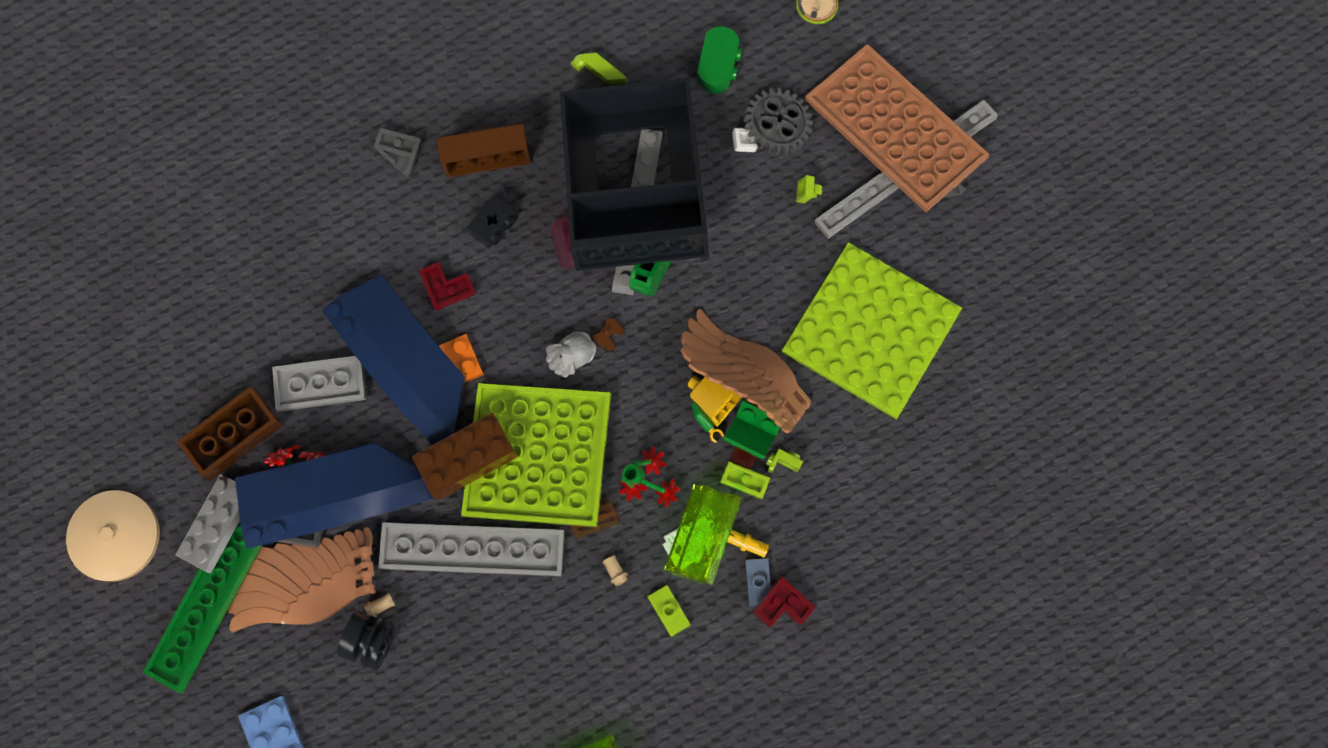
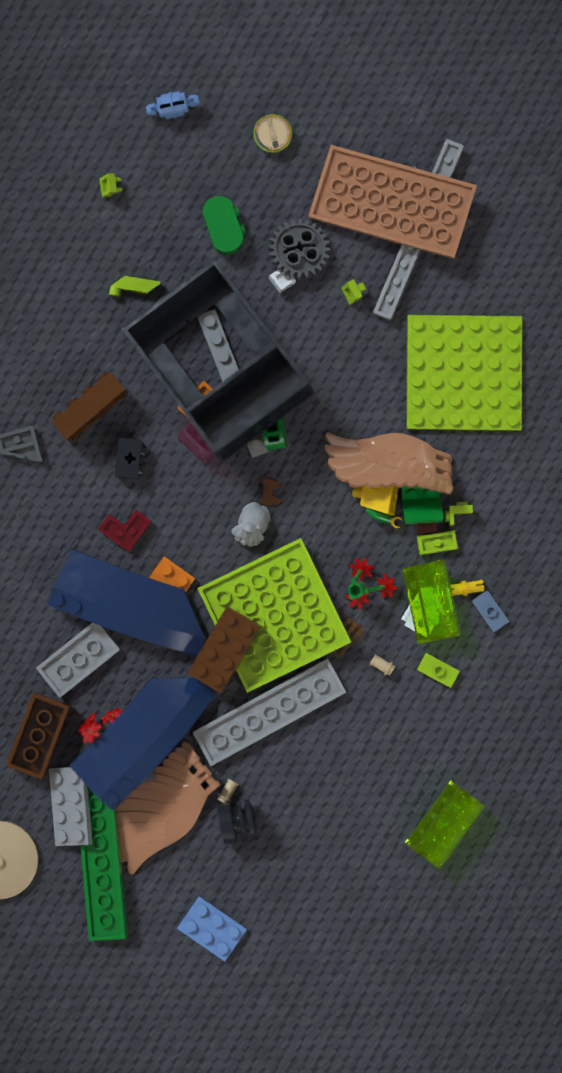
camera: 35 degrees left, 10 degrees up
(783, 598) = (516, 612): dark red plate -> none

